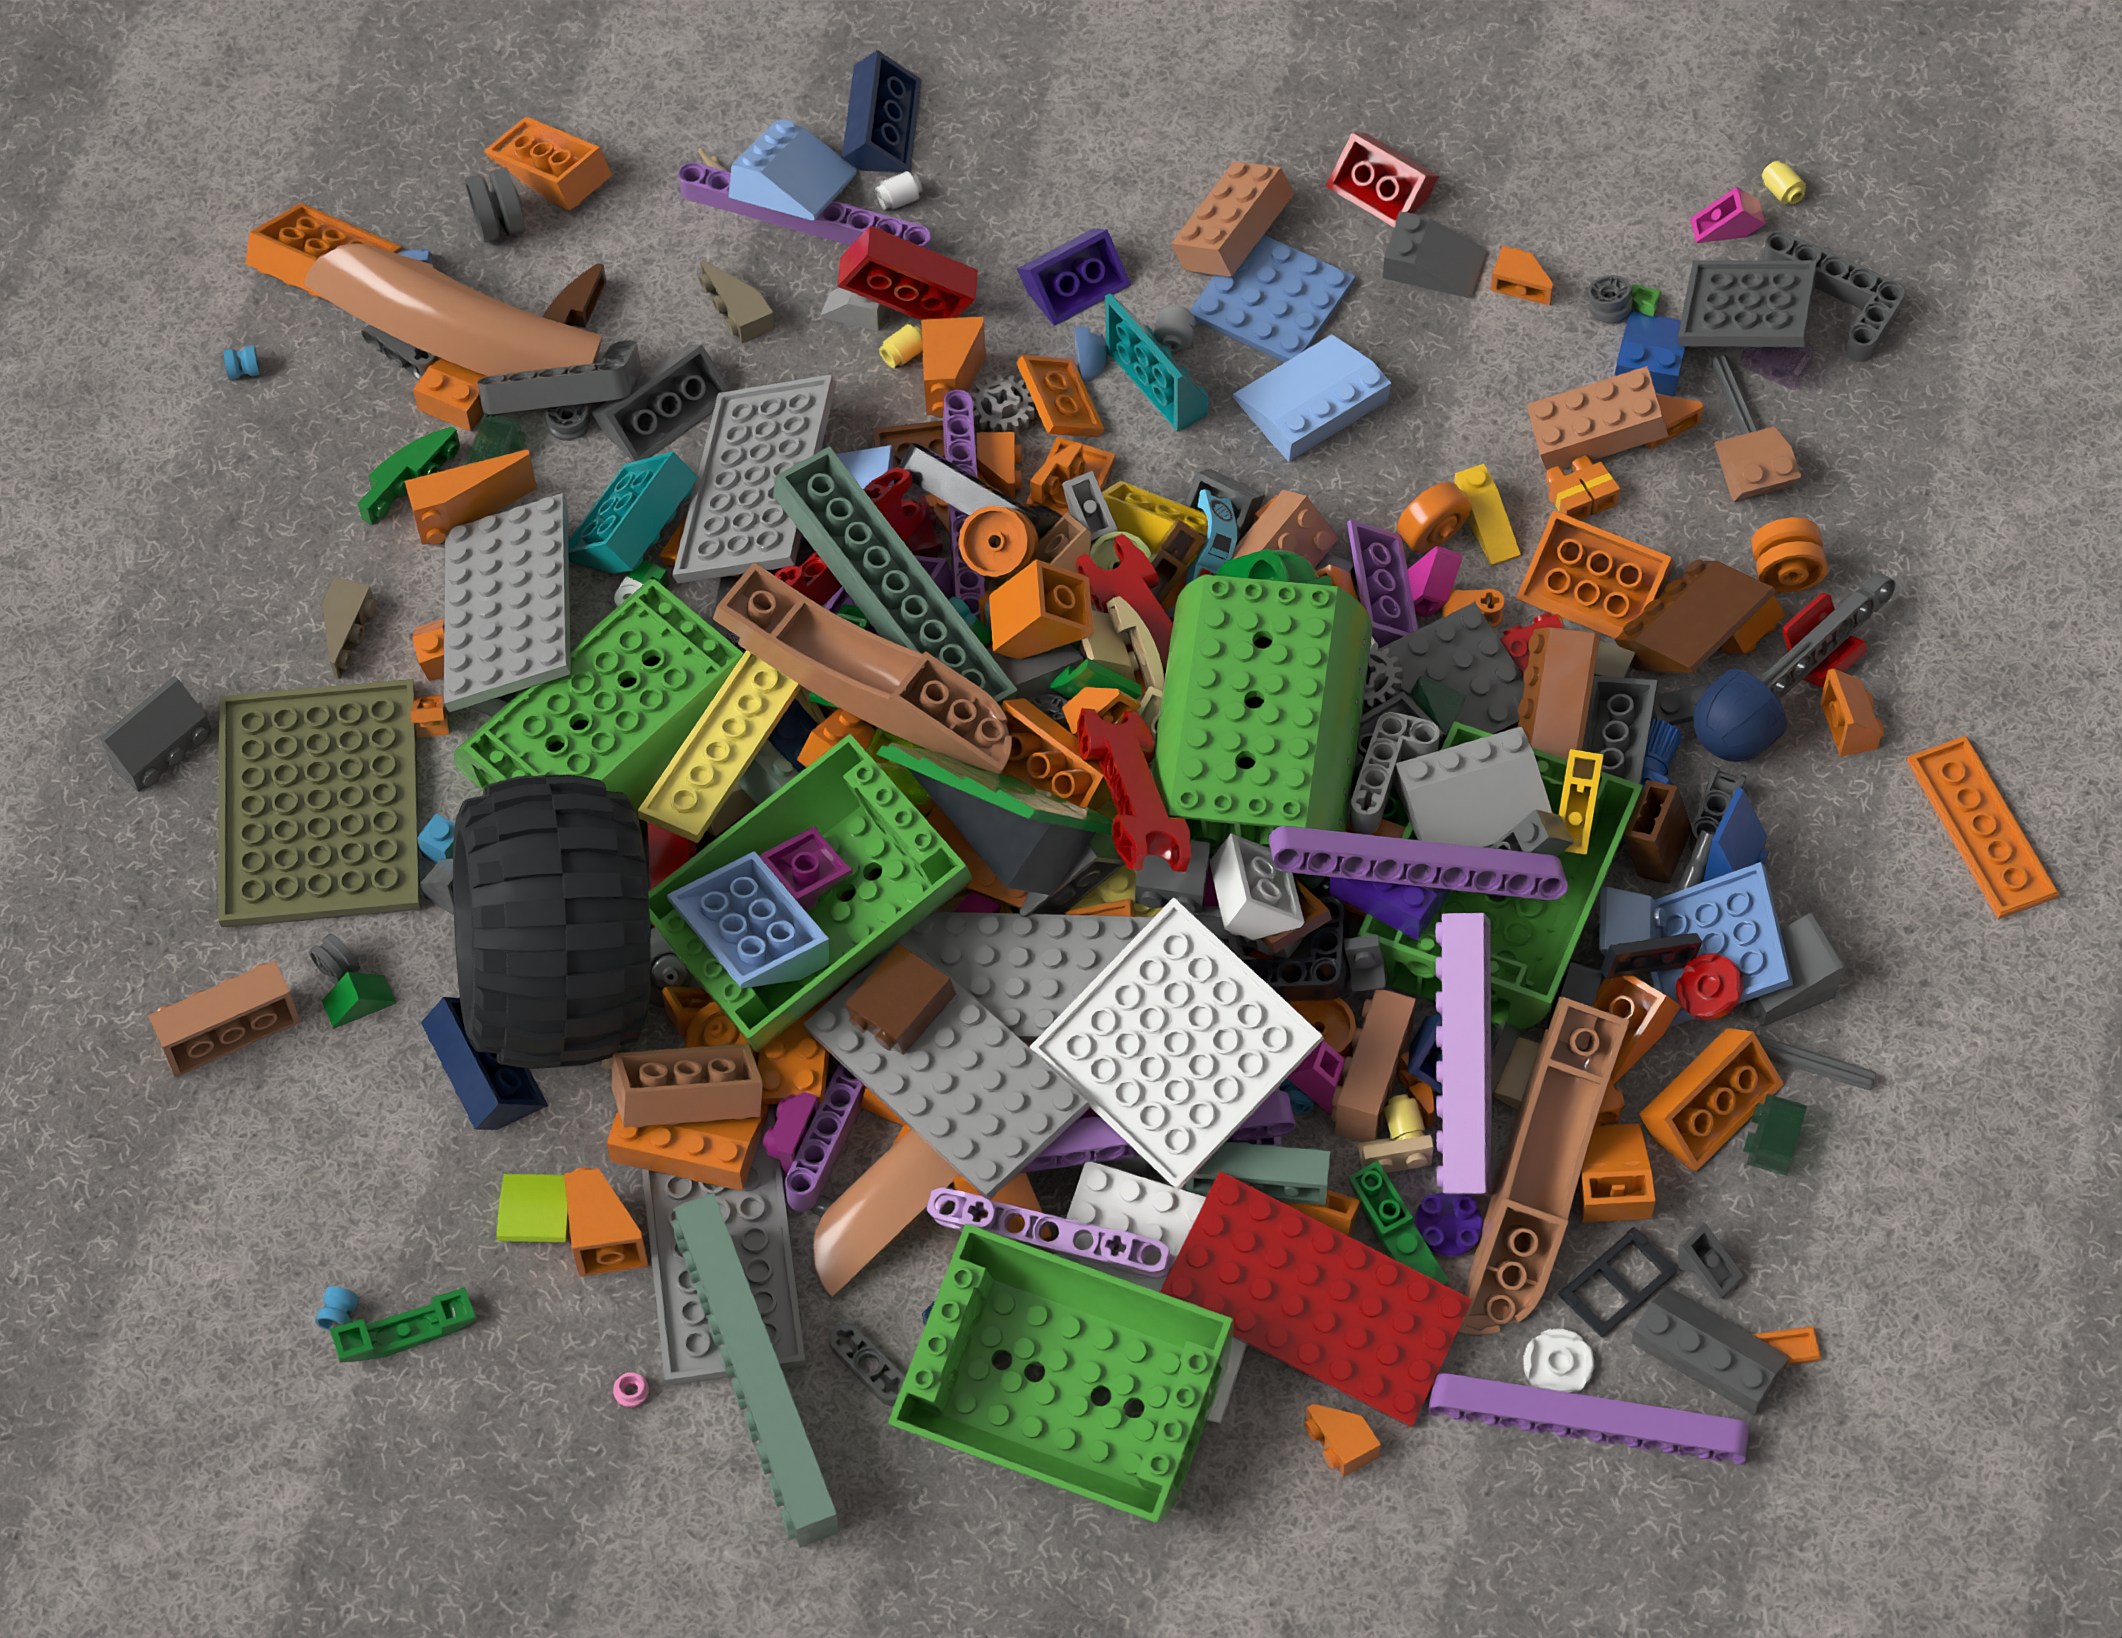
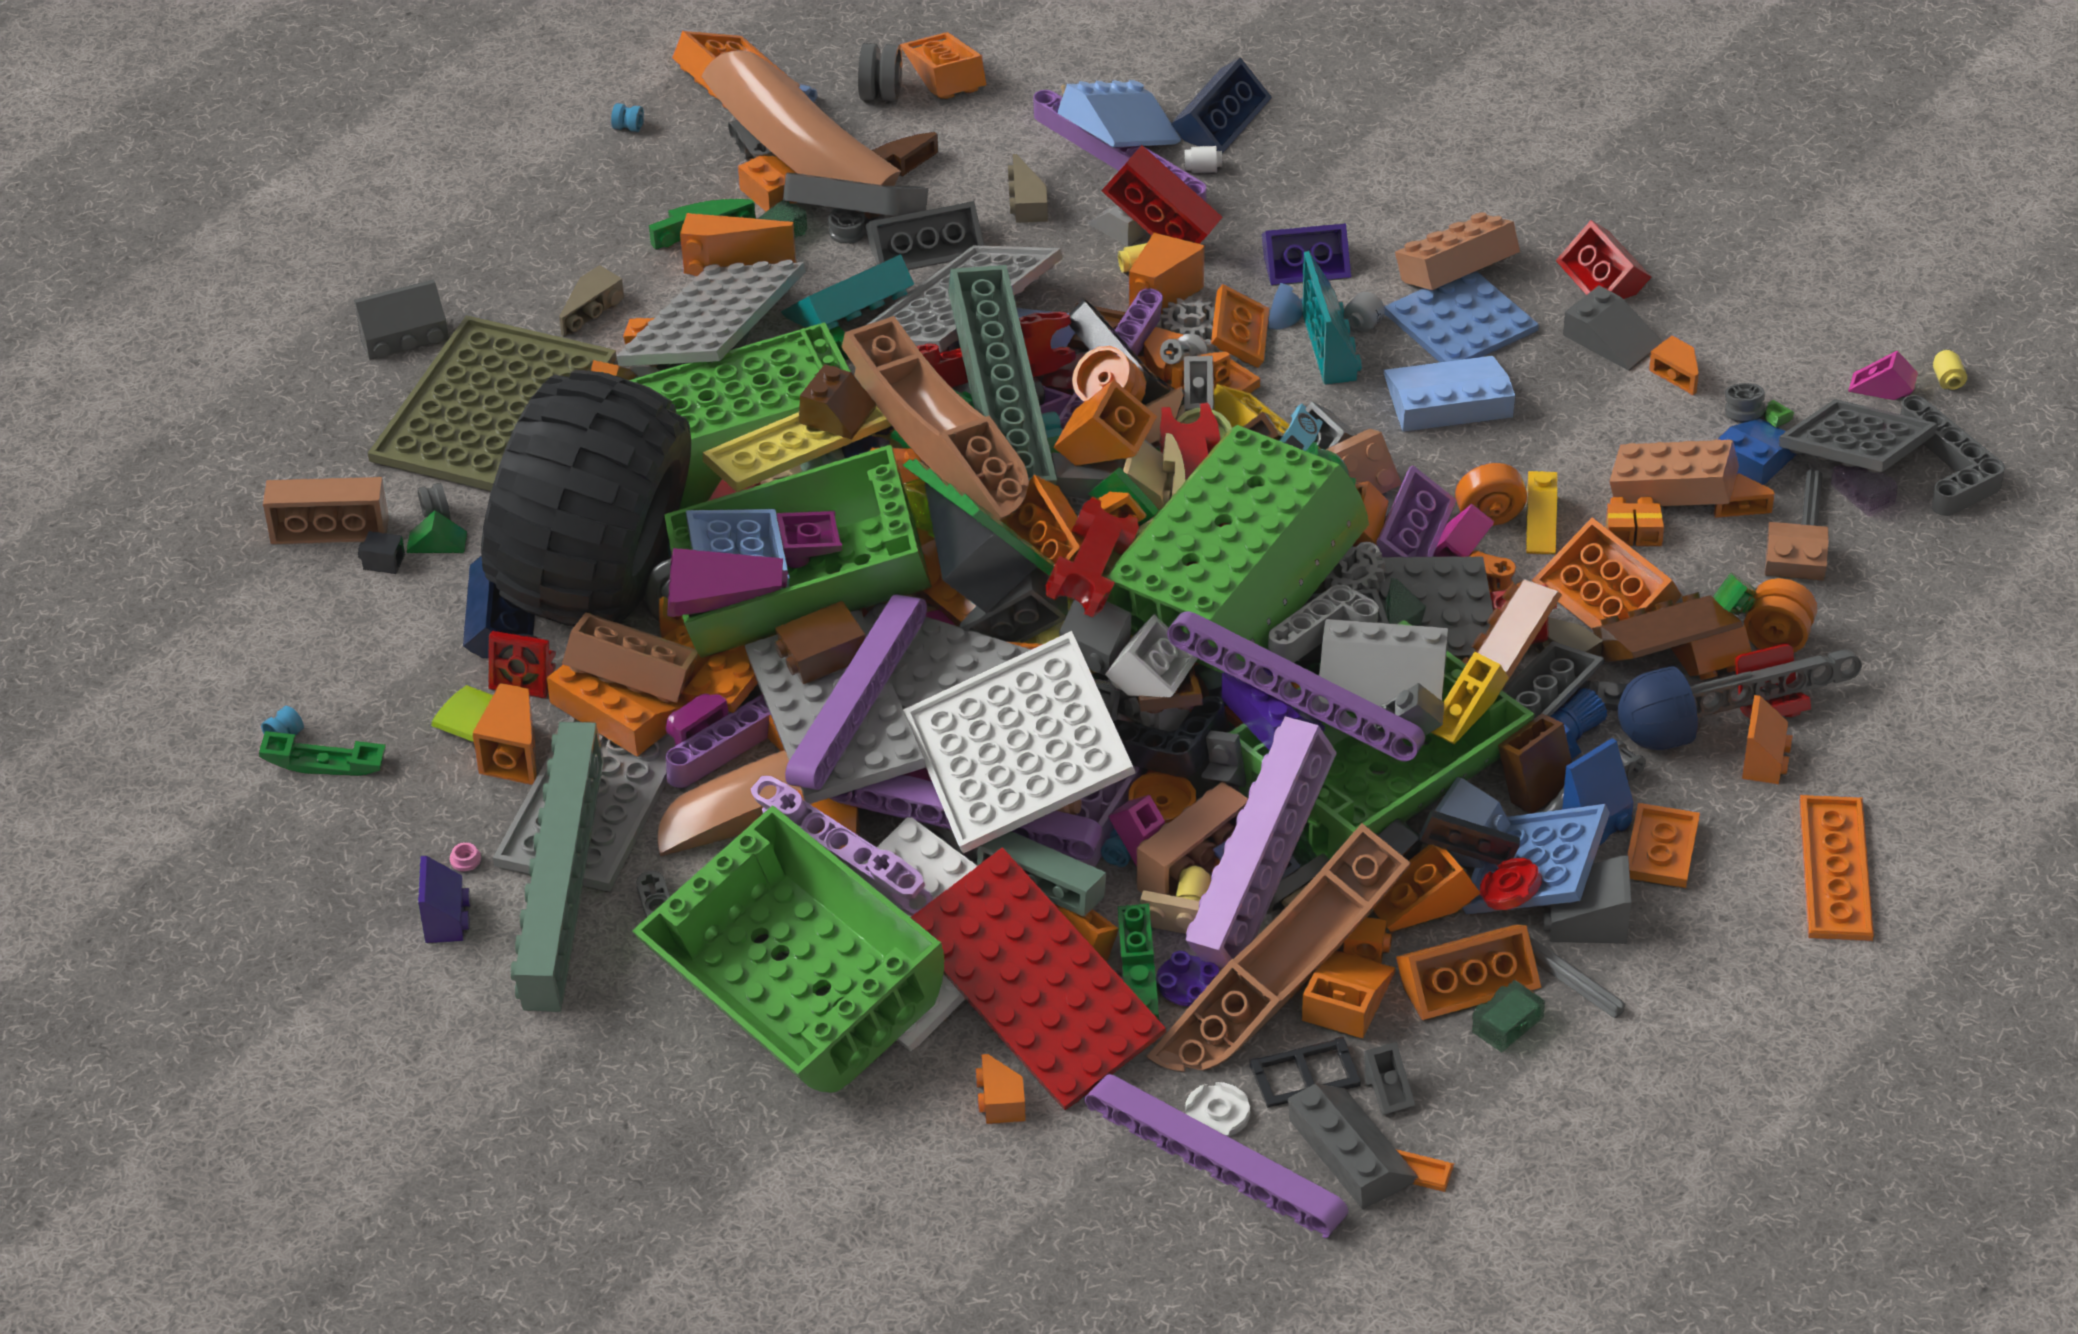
camera: 25 degrees right, 15 degrees down
(311, 1043) = (382, 552): none -> black brick
(554, 1128) = (519, 661): none -> red piece
(648, 1461) = (442, 902): none -> dark purple slope
(743, 690) = (835, 403): none -> reddish brown slope
(764, 980) = (715, 580): none -> magenta slope
(975, 1050) = (855, 692): none -> medium lavender beam
(1032, 453) = (1185, 346): none -> light grey piece
(1743, 554) = (1735, 595): none -> green slope
(1811, 870) = (1662, 845): none -> orange plate

